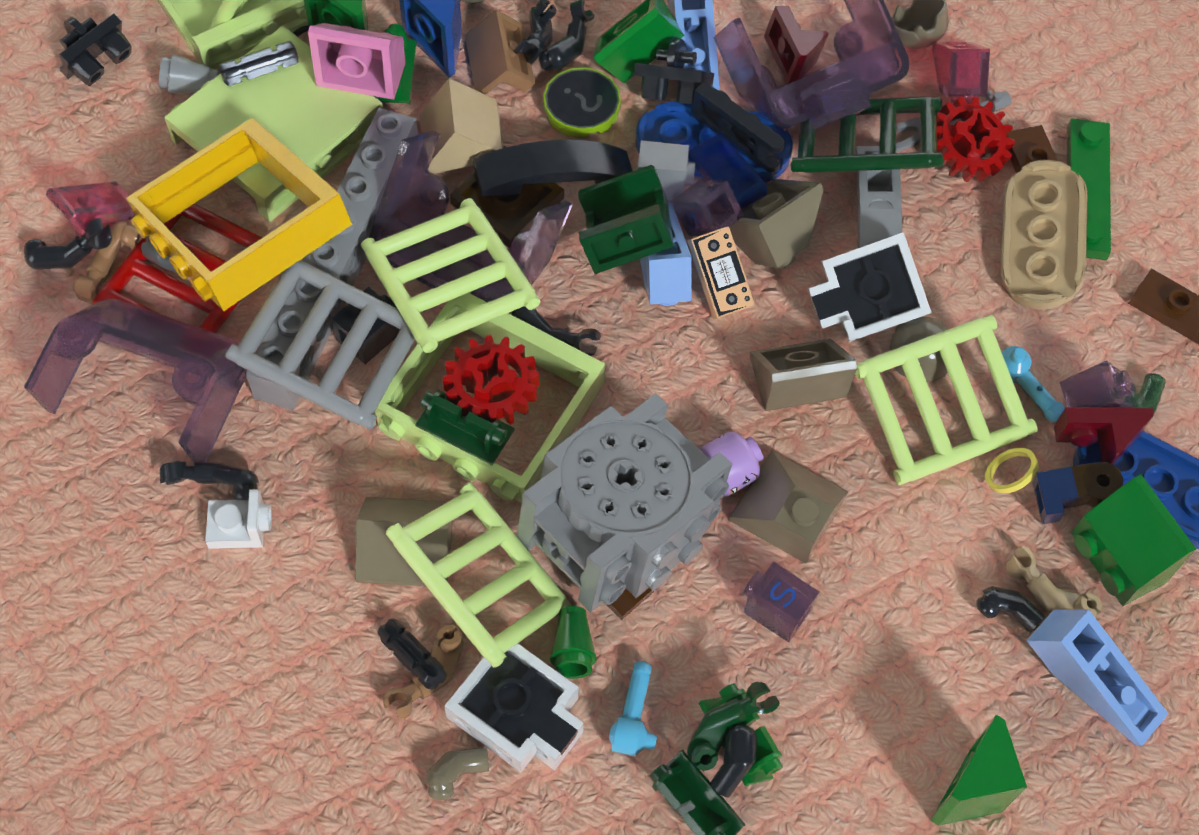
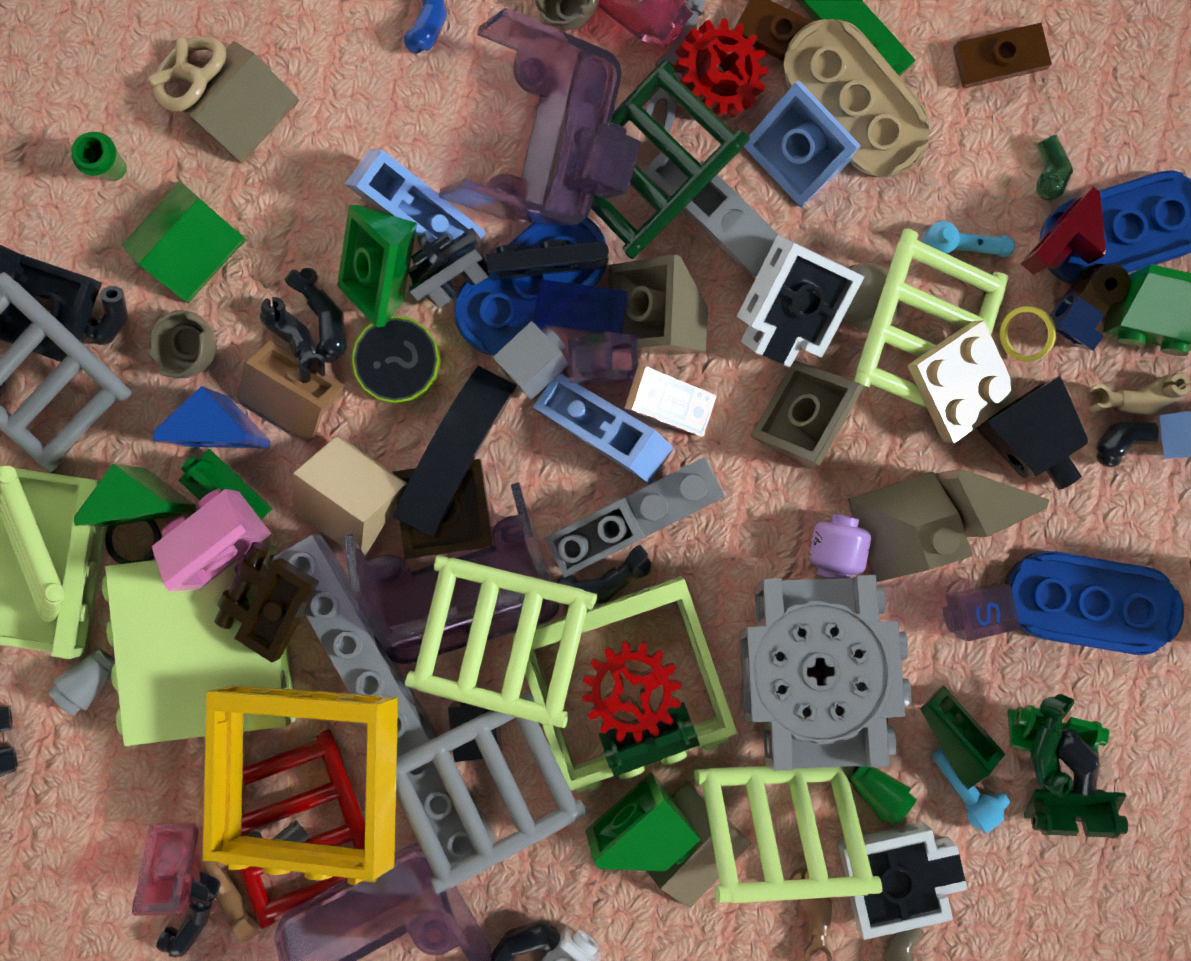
camera: 40 degrees left, 25 degrees up
(258, 63) = (136, 625): axle -> none
(344, 117) = (276, 607): none -> dark brown plate
(393, 474) = (642, 831): none -> green slope
(412, 654) = (793, 921): black axle -> none
(619, 317) = (635, 516): none -> light grey slope
(625, 219) = (566, 444): dark green panel -> none
(666, 680) = (961, 738): none -> dark green slope
(793, 48) = (500, 134): dark red slope -> none
(865, 528) = (986, 503): none -> dark tan slope
(870, 691) = (1095, 602): none -> blue tile
(931, 448) = (963, 381): none -> plate
(949, 533) = (1039, 433): none -> black torso
(977, 224) = (801, 144): none -> light blue slope
(1099, 387) = (1033, 207): clear purple brick -> none

